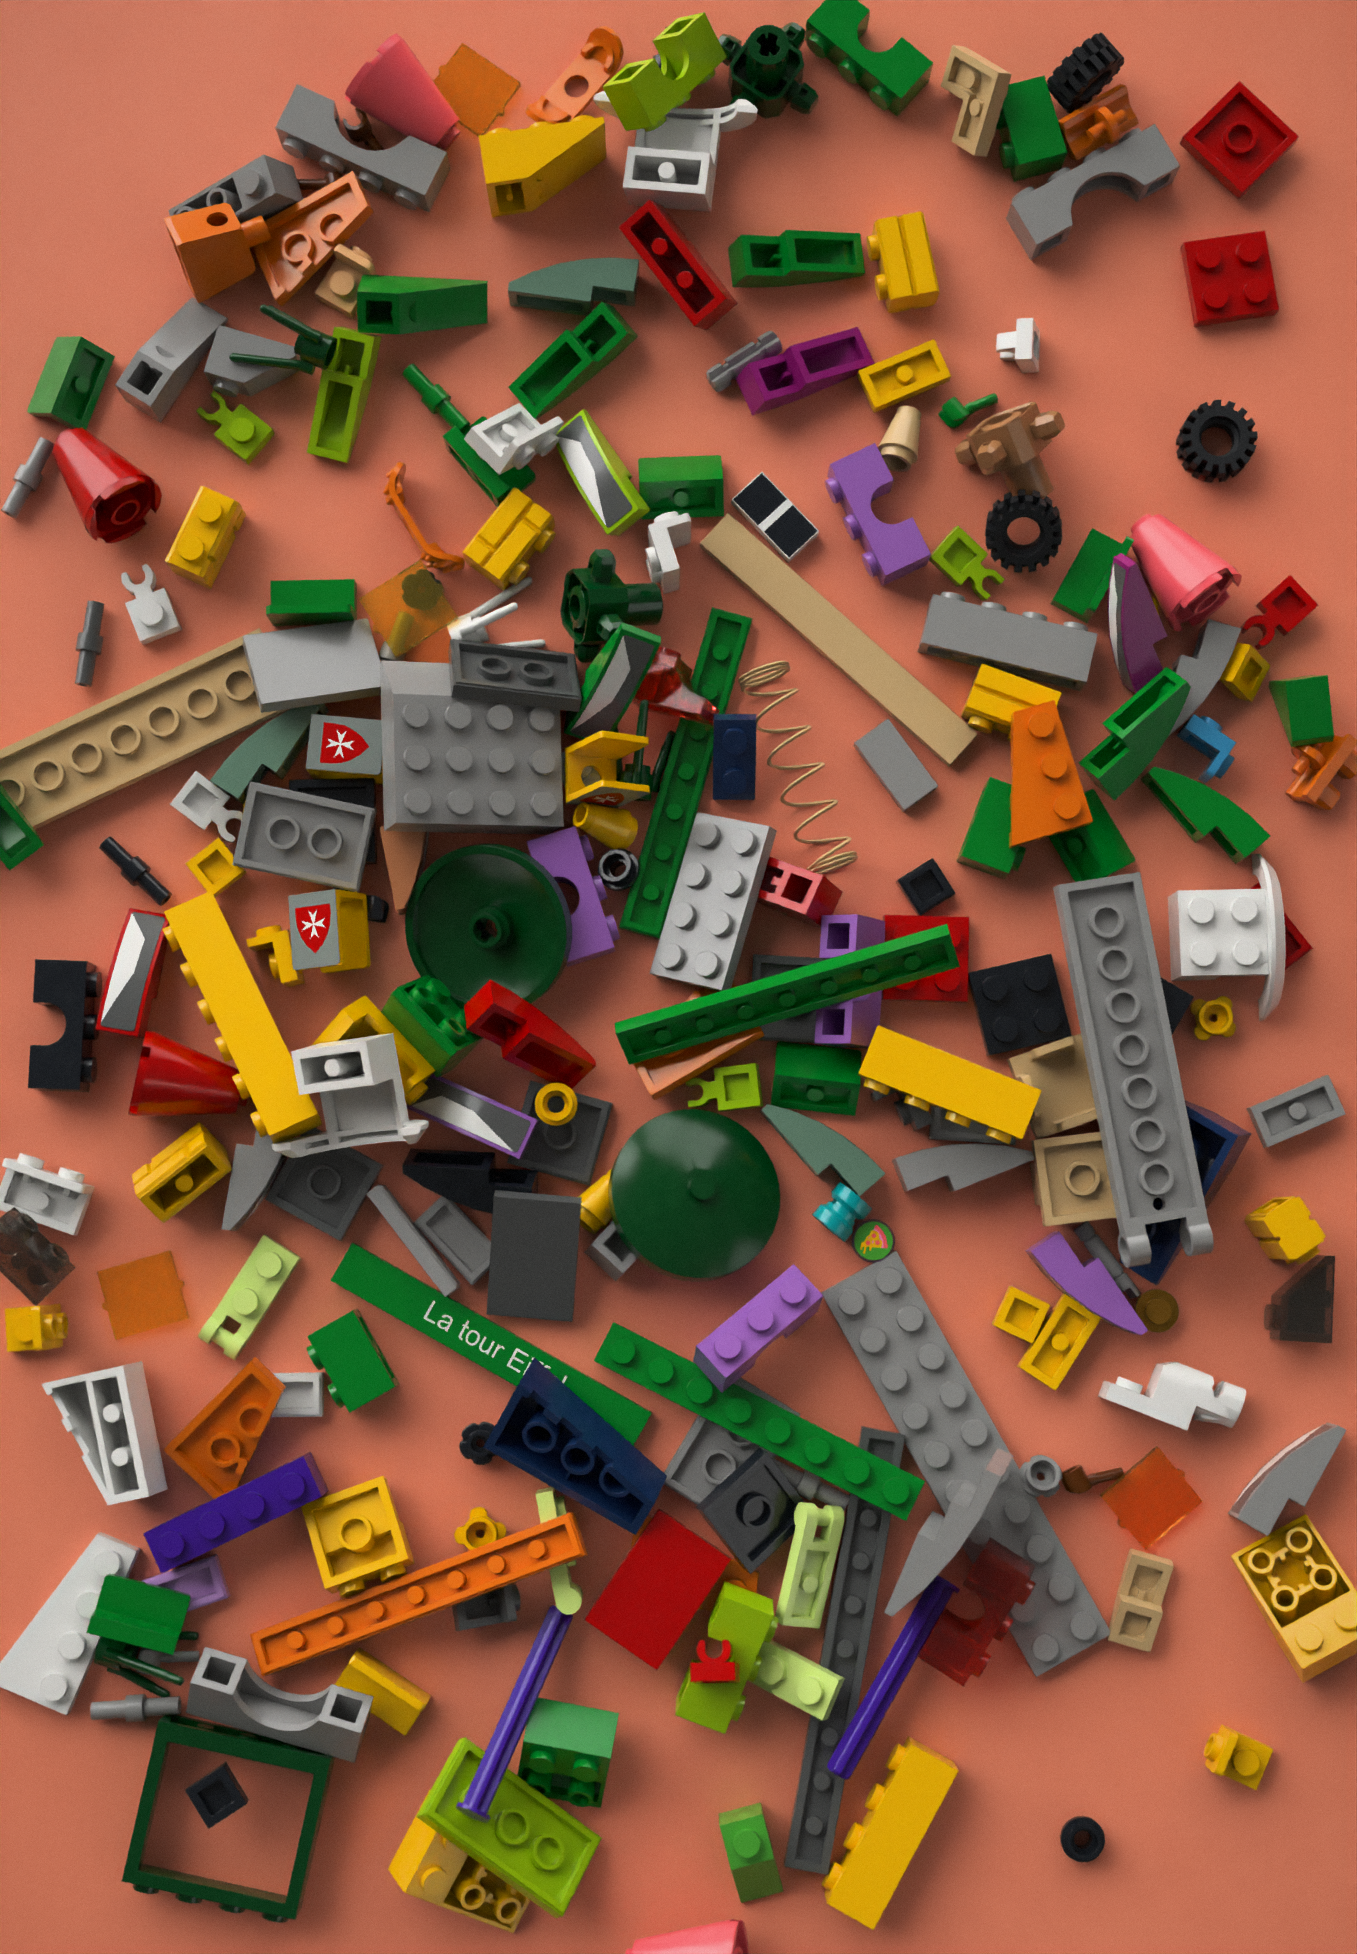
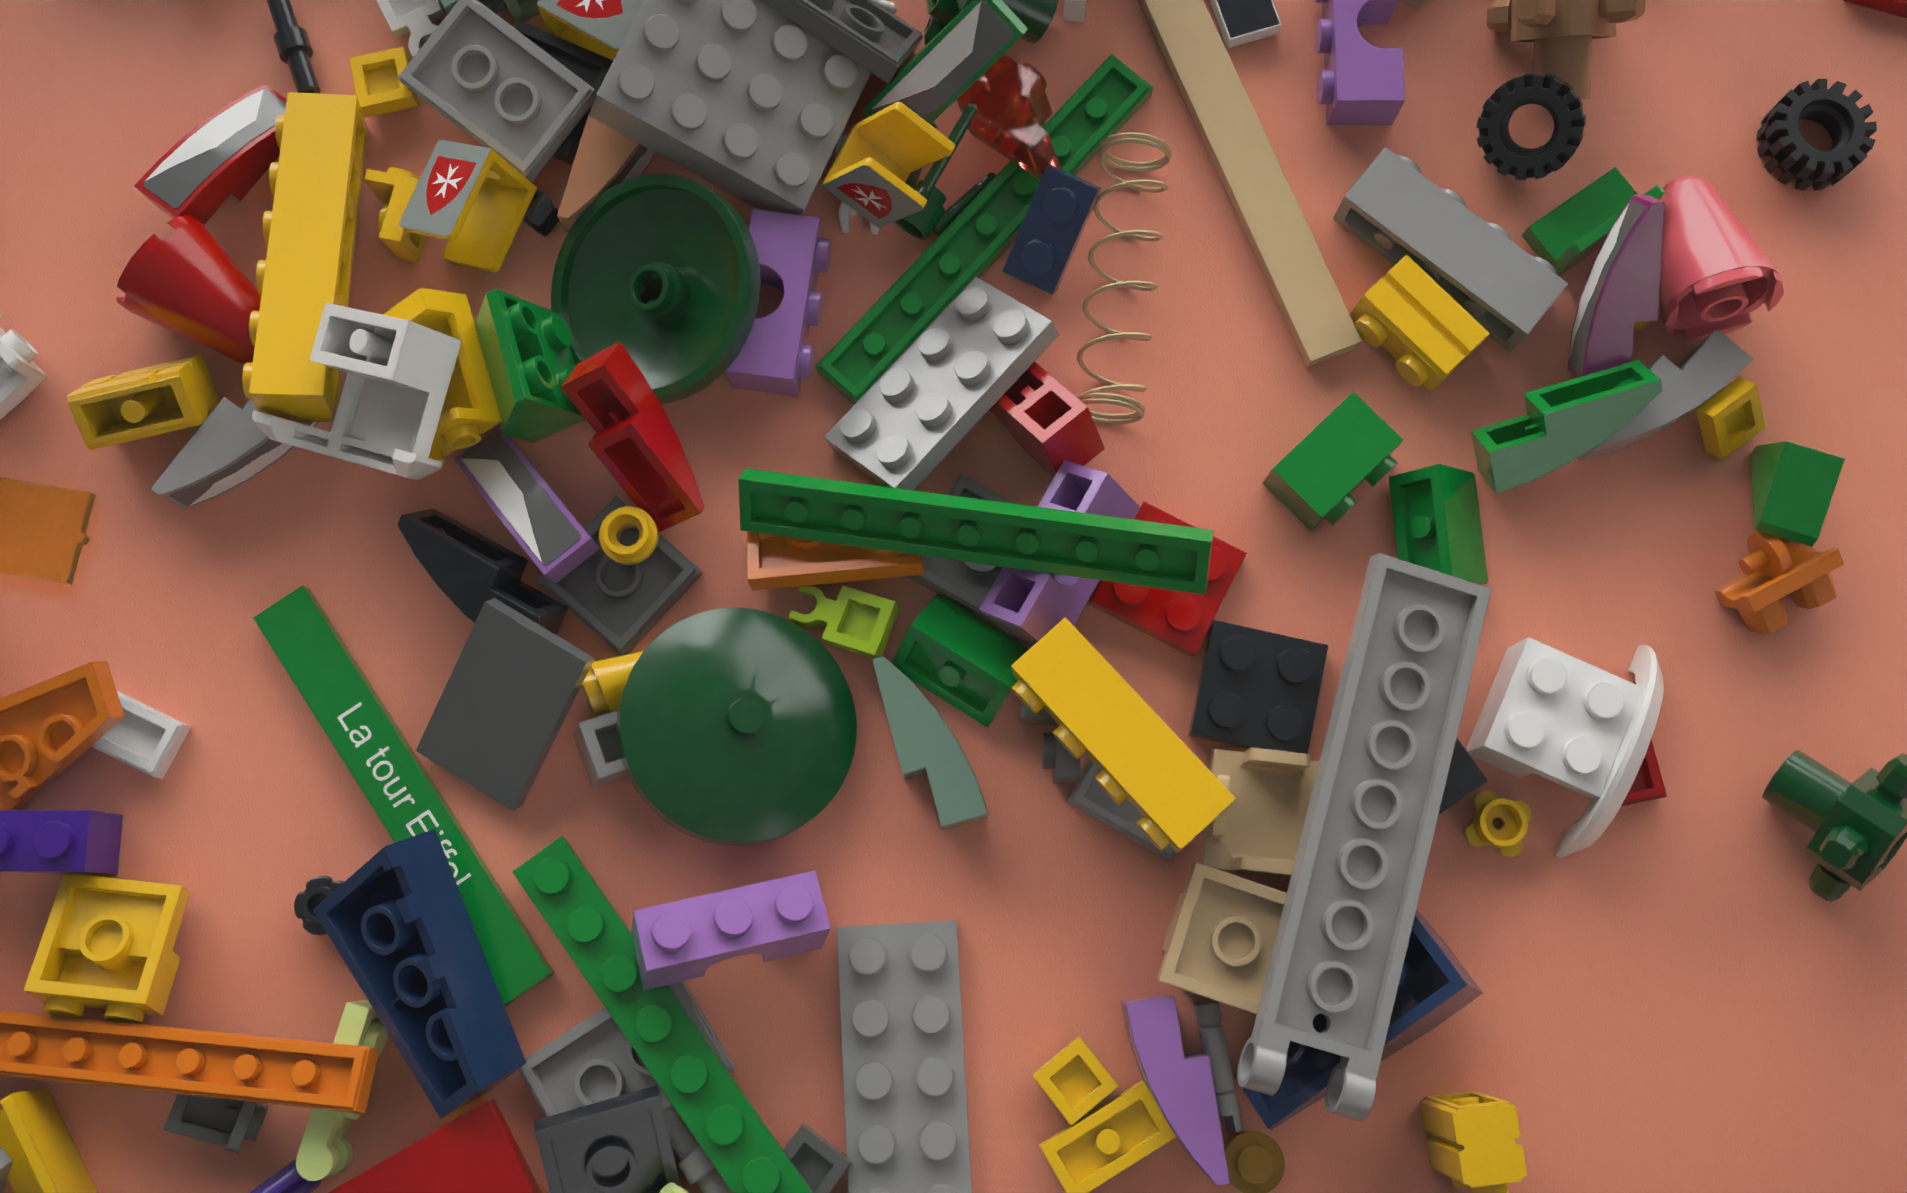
camera: 30 degrees right, 5 degrees down
(67, 1062) = (100, 214): black arch -> none
(250, 1295) = (151, 592): yellowish green plate -> none
(325, 1187) = (307, 504): dark grey plate -> none
(351, 1361) = (223, 726): green brick -> none
(414, 1239) = (375, 617): light grey tile -> none
(456, 1238) = (428, 638): light grey tile -> none
(479, 1520) = (272, 1000): yellow plate -> none
(607, 824) = (859, 237): yellow cone -> none
(611, 861) = (848, 298): black plate -> none
(842, 1211) = (910, 838): teal wheel -> none
(872, 1240) = (934, 893): tile -> none
(895, 765) = (1243, 334): light grey tile -> none
(925, 887) = (1210, 494): black tile -> none
(958, 1164) = (1088, 848): light grey slope -> none
(960, 560) = (1436, 131): lime plate -> none
(1044, 778) = (1421, 424): orange wing -> none
(1206, 811) = (1605, 561): green slope -> none
(1207, 737) = (1648, 480): dark azure bracket -> none
(1281, 610) = (1809, 365): red plate -> none
(1296, 1111) = (1553, 993): light grey plate -> none

